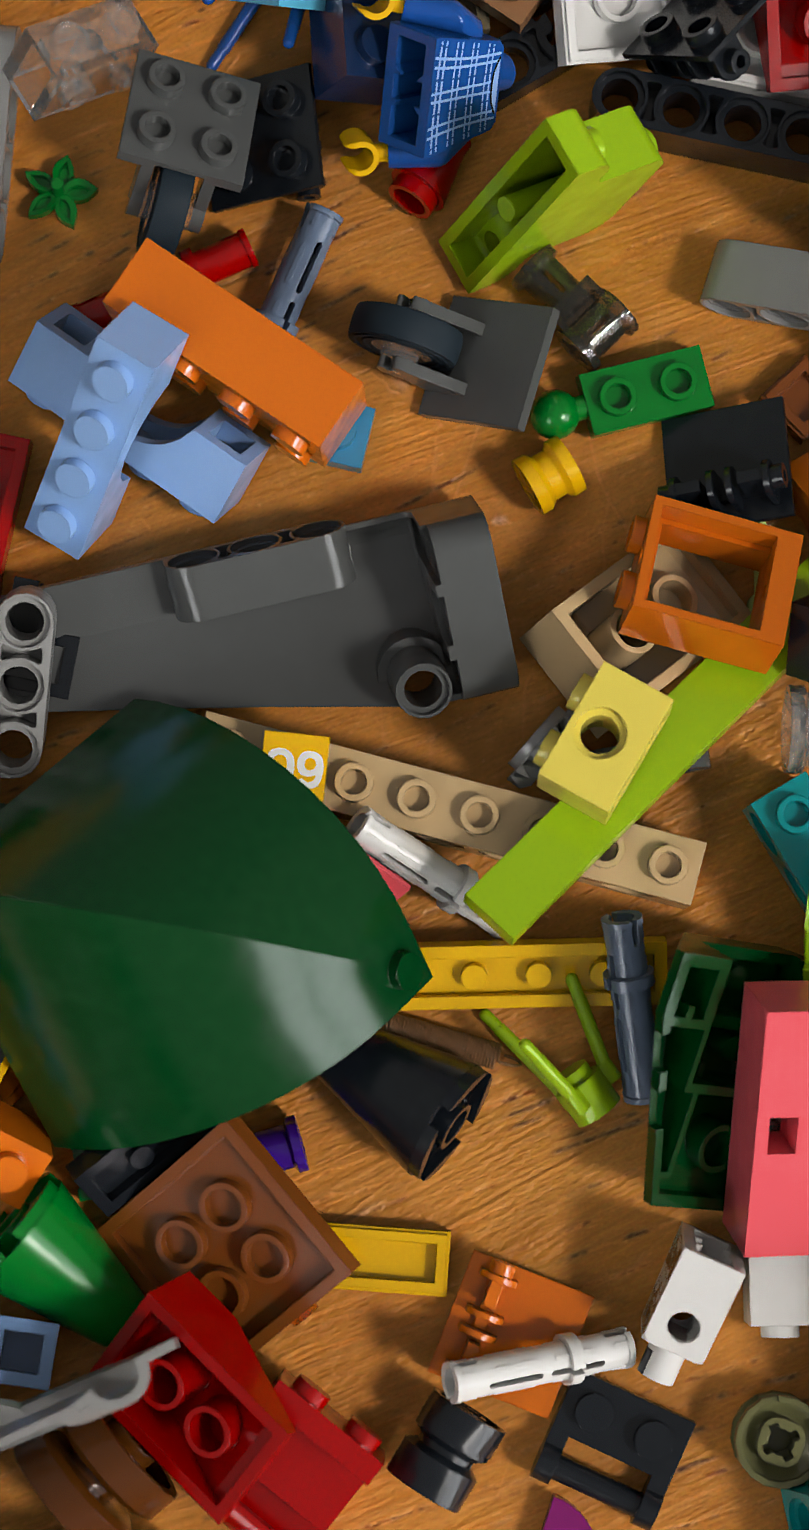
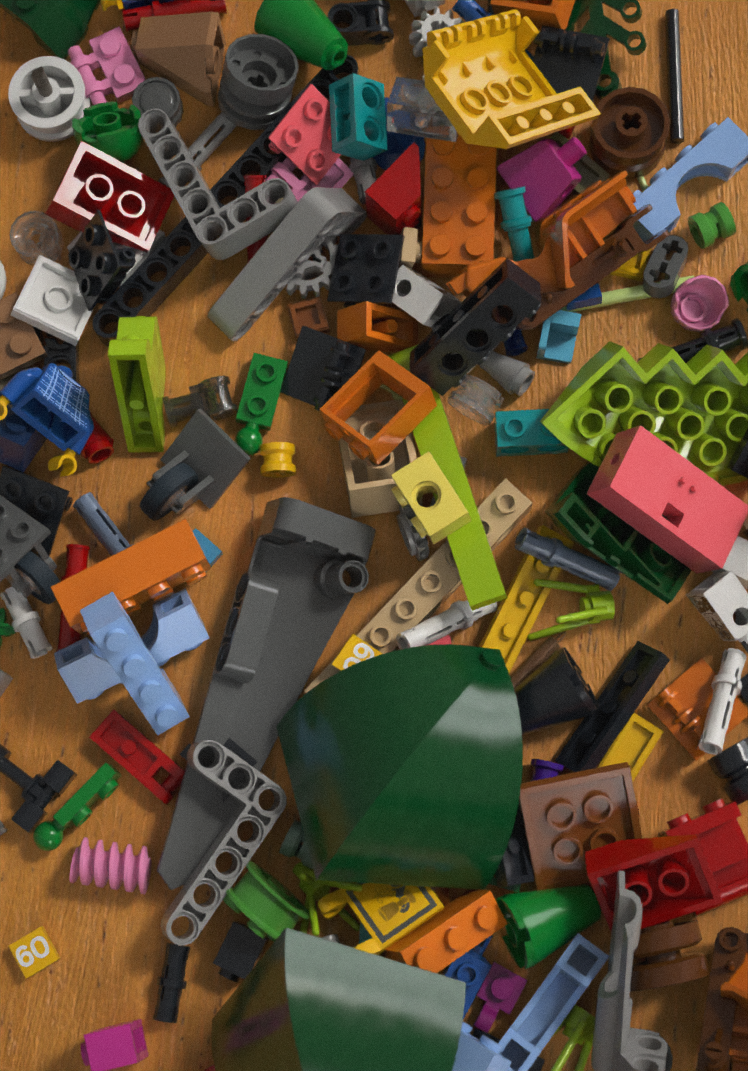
camera: 55 degrees left, 5 degrees down
(91, 237) = (26, 623): none -> white pin
(445, 1204) = (616, 707): none -> black plate

